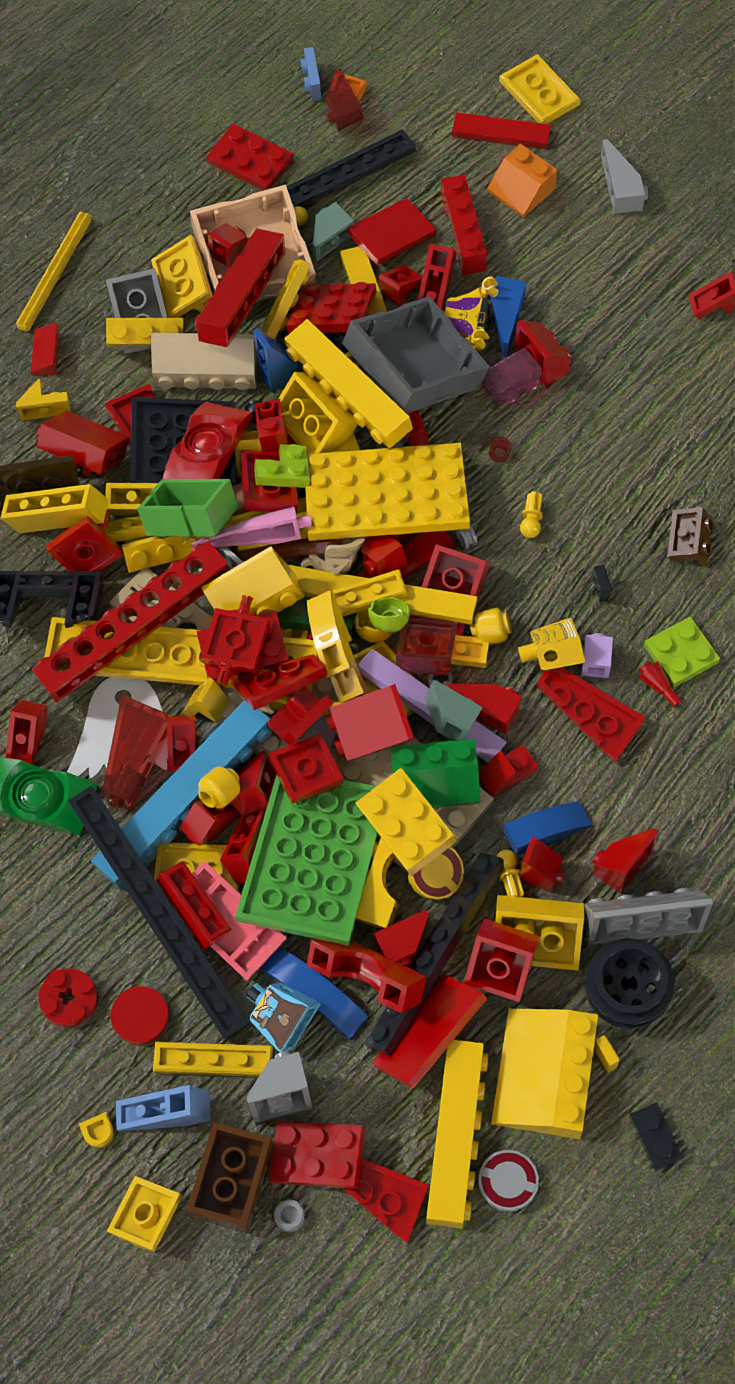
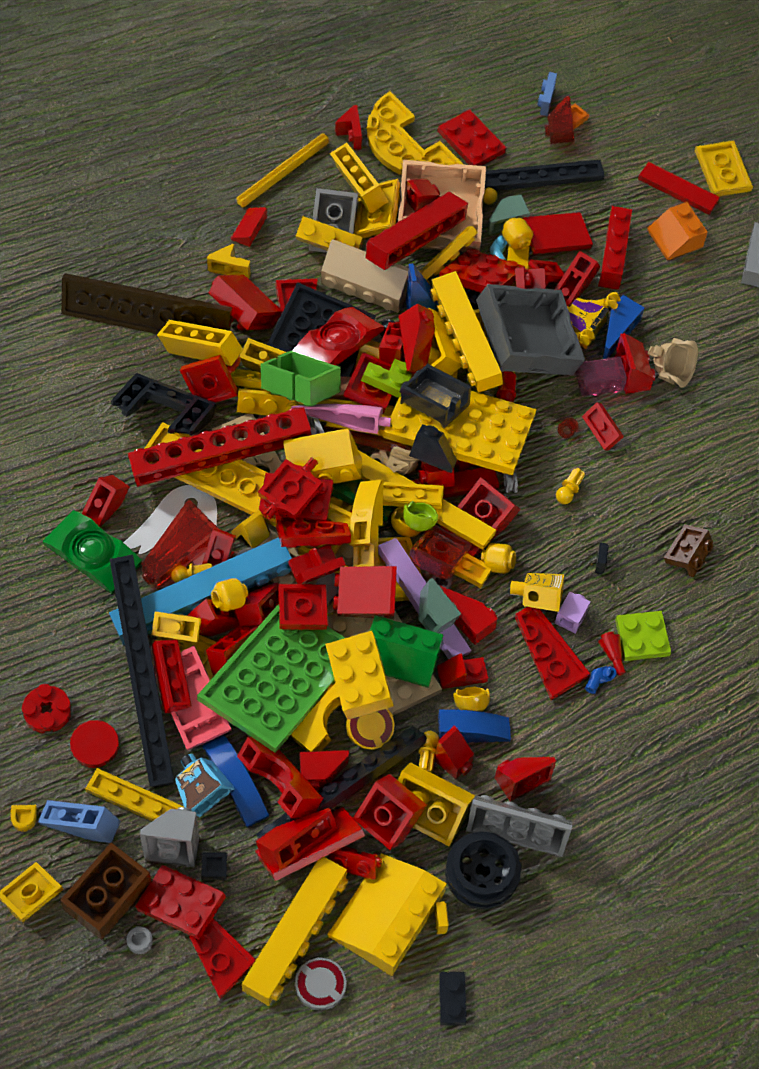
camera: 15 degrees right, 5 degrees down
(108, 191) = (349, 125): none -> red slope
(147, 249) = (359, 177): none -> yellow brick
(151, 782) = (181, 572): none -> yellow axle
(166, 195) = (393, 144): none -> yellow plate
(175, 846) = (176, 626): none -> yellow slope
(296, 410) = (417, 336): none -> red slope
(334, 271) = (498, 247): none -> medium azure arm
(335, 1098) = (214, 866): none -> black plate
(347, 469) = (436, 394): none -> black window
(351, 248) = (517, 233): none -> yellow head
(372, 532) = (433, 448): none -> black slope
(391, 296) = (530, 278): none -> red slope
(412, 1035) = (295, 838): none -> red slope
(496, 1031) = (358, 864): none -> red hinge
(532, 796) = (472, 698): none -> yellow hair
(538, 433) = (602, 426): none -> red plate
(584, 329) = (675, 361): none -> tan helmet
(656, 715) = (600, 676): none -> blue arm

